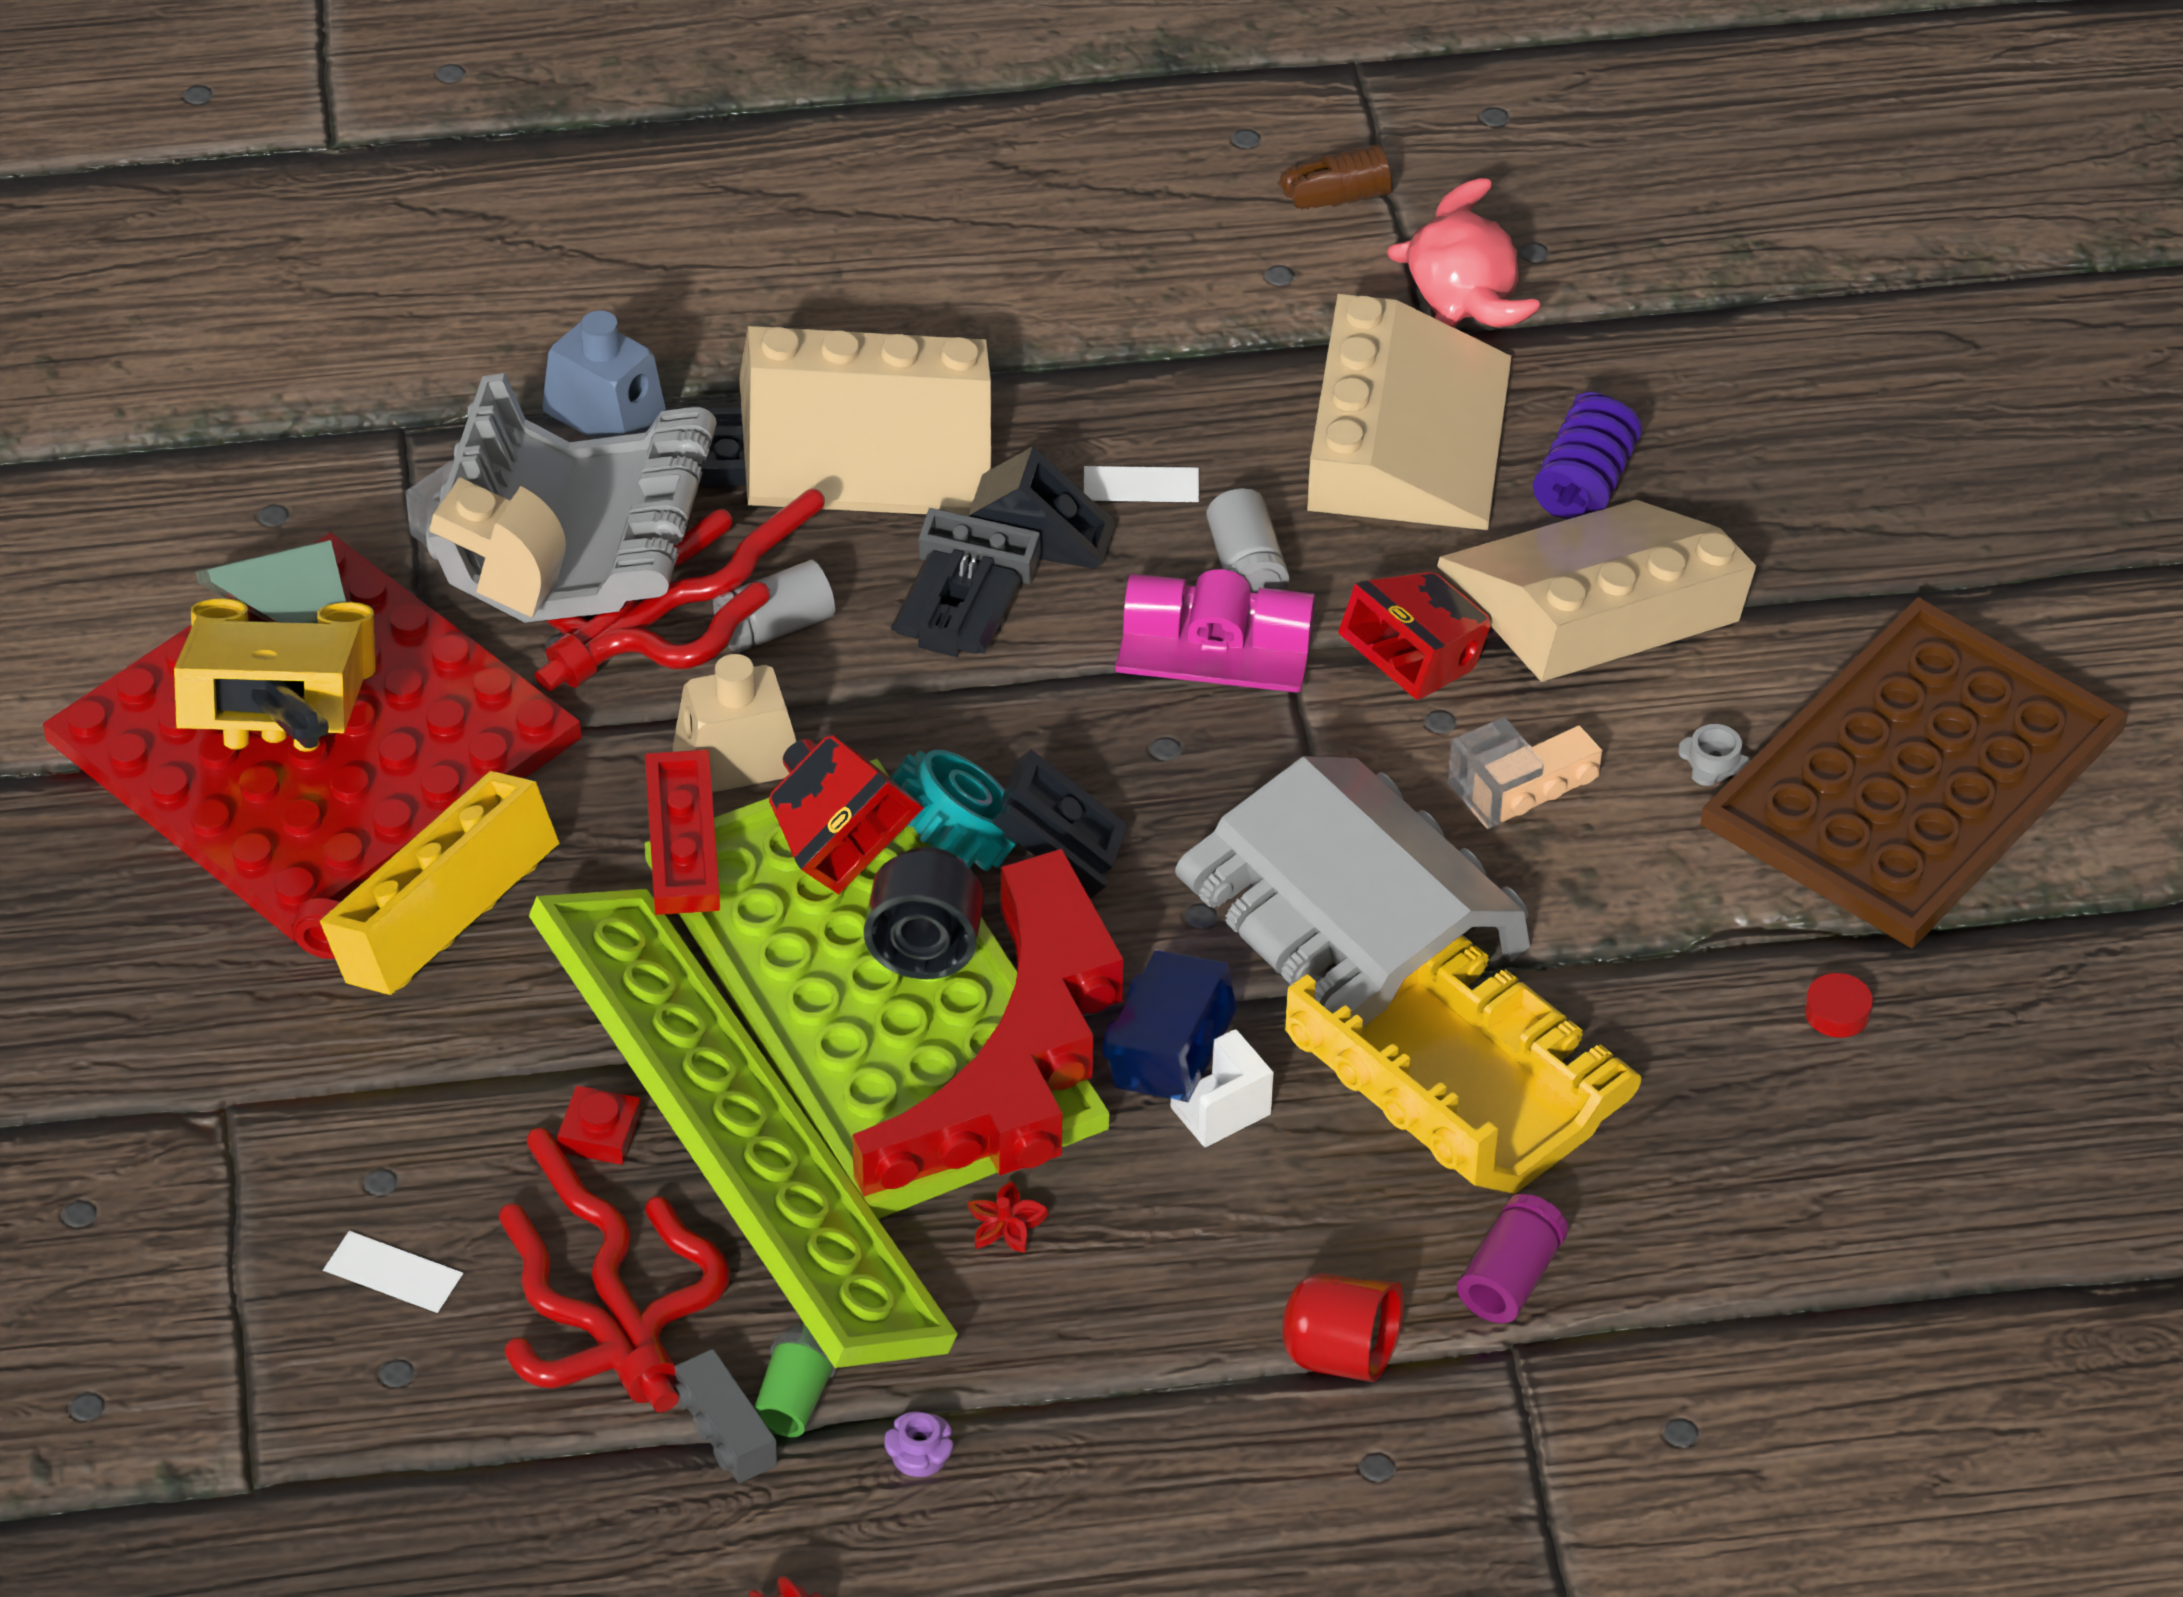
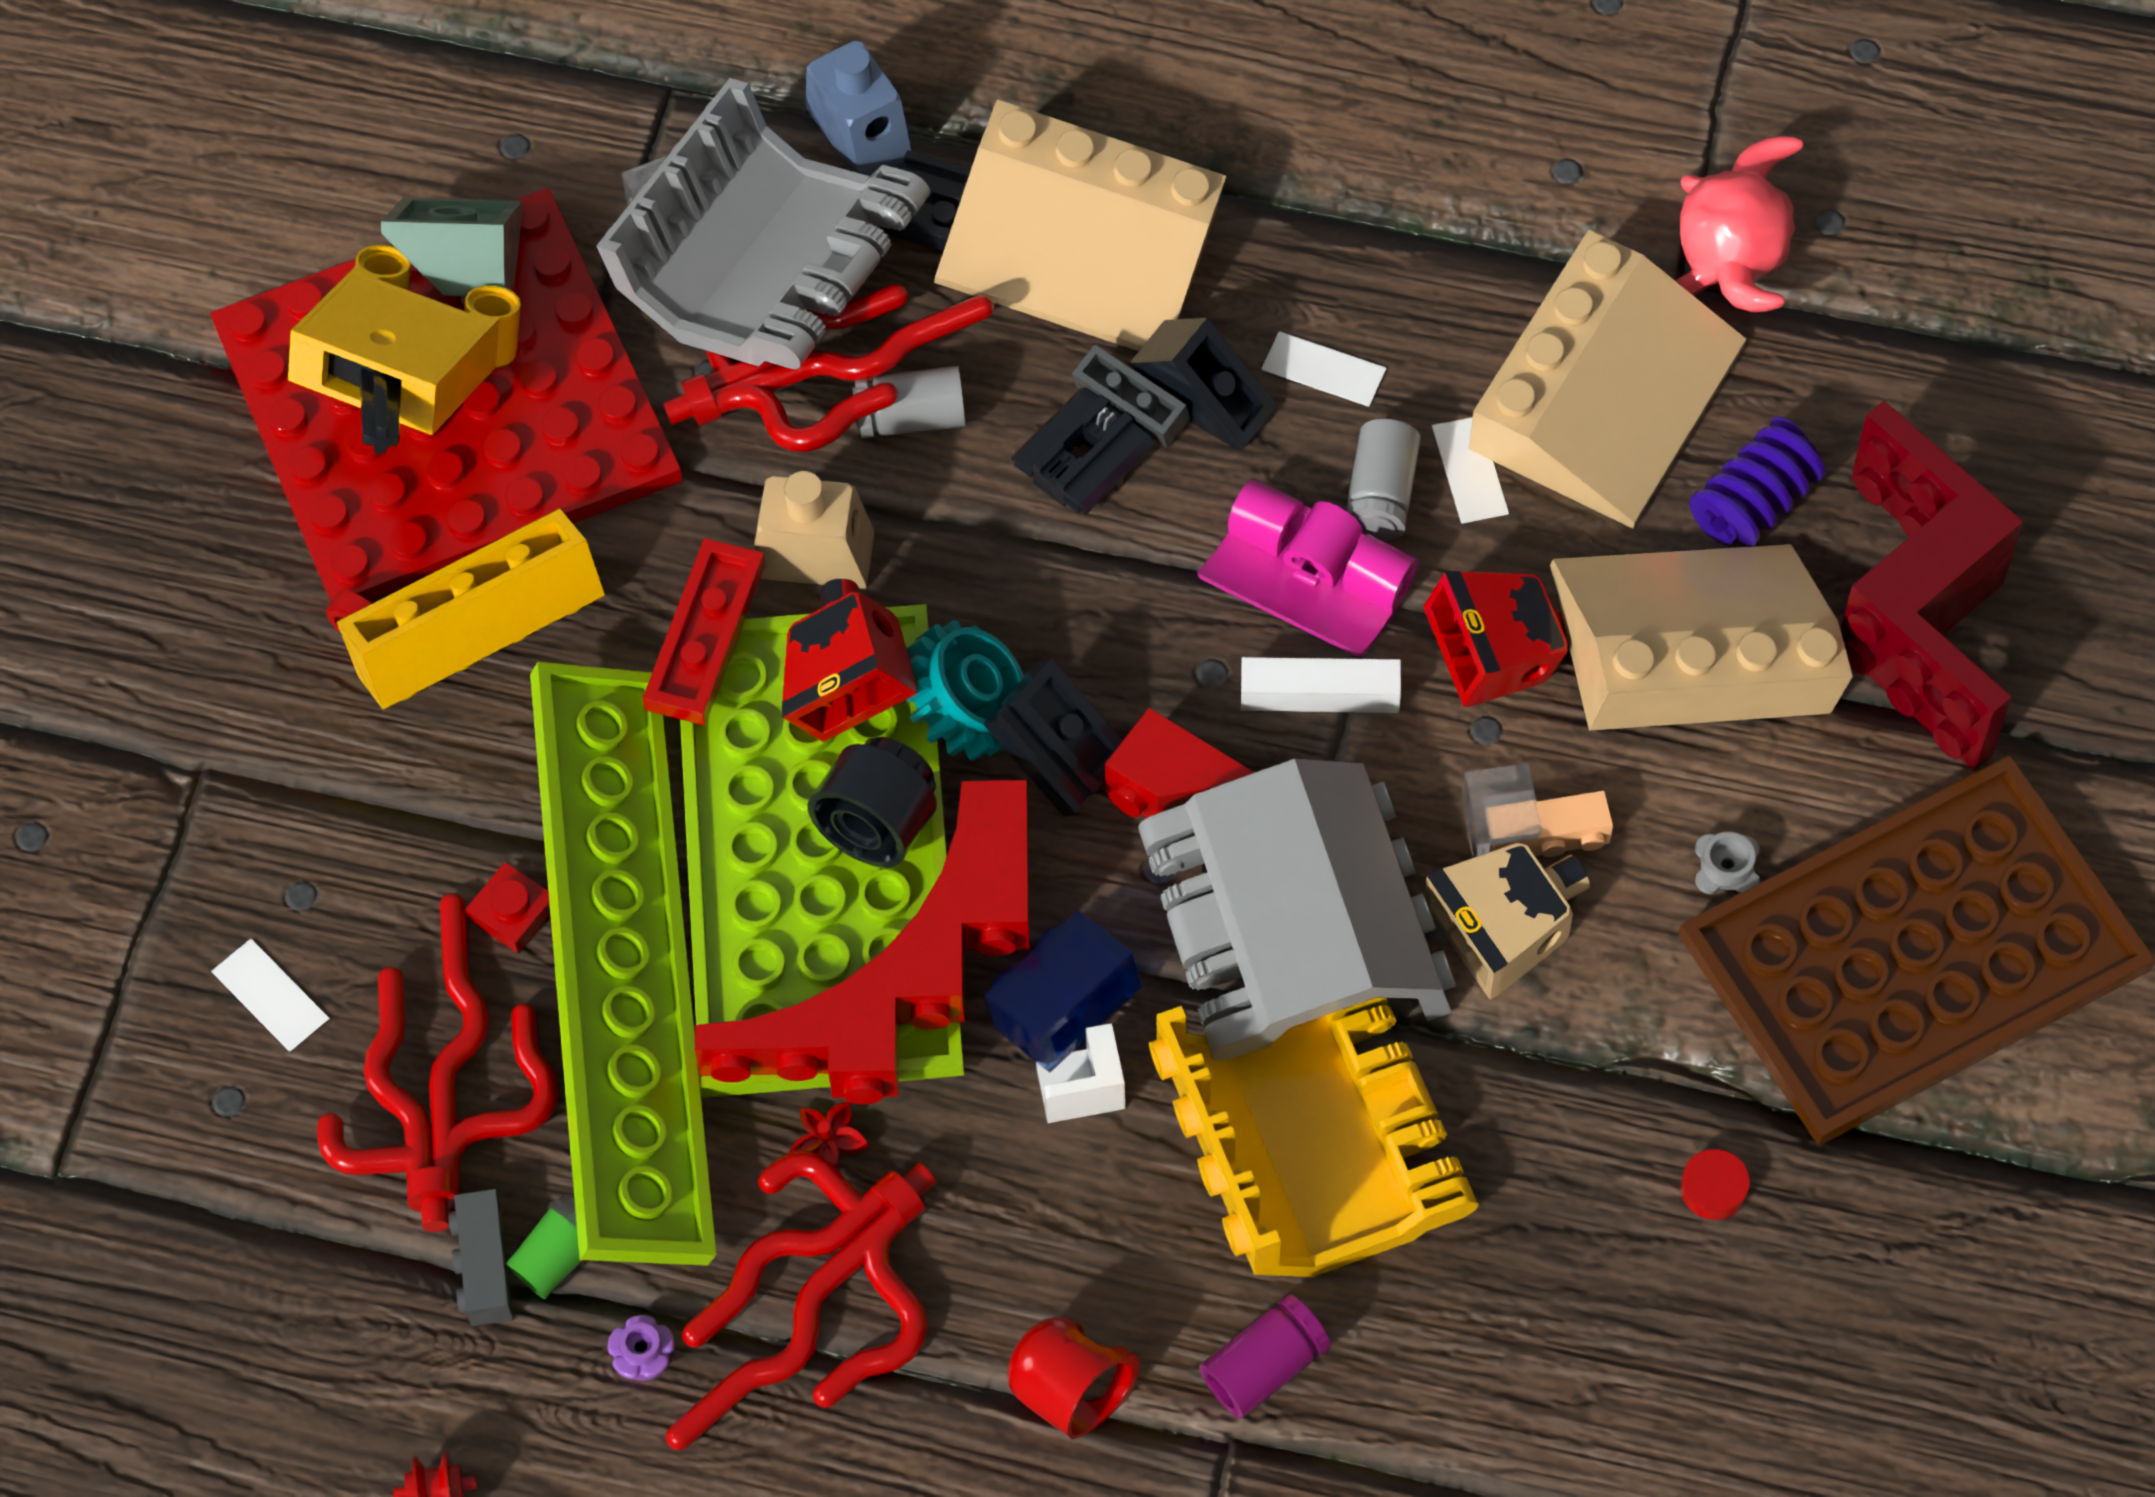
camera: 25 degrees right, 15 degrees up
(516, 537) = (674, 271): tan brick -> none
(1087, 1276) = (866, 1232): none -> red plant
(1168, 820) = (1164, 767): none -> red slope
(1274, 723) = (1321, 685): none -> white piece
(1318, 530) = (1469, 474): none -> white sticker
(1338, 178) = (1664, 83): reddish brown hinge -> none
(1541, 844) = (1505, 911): none -> tan torso
(1786, 459) = (1927, 585): none -> dark red bracket

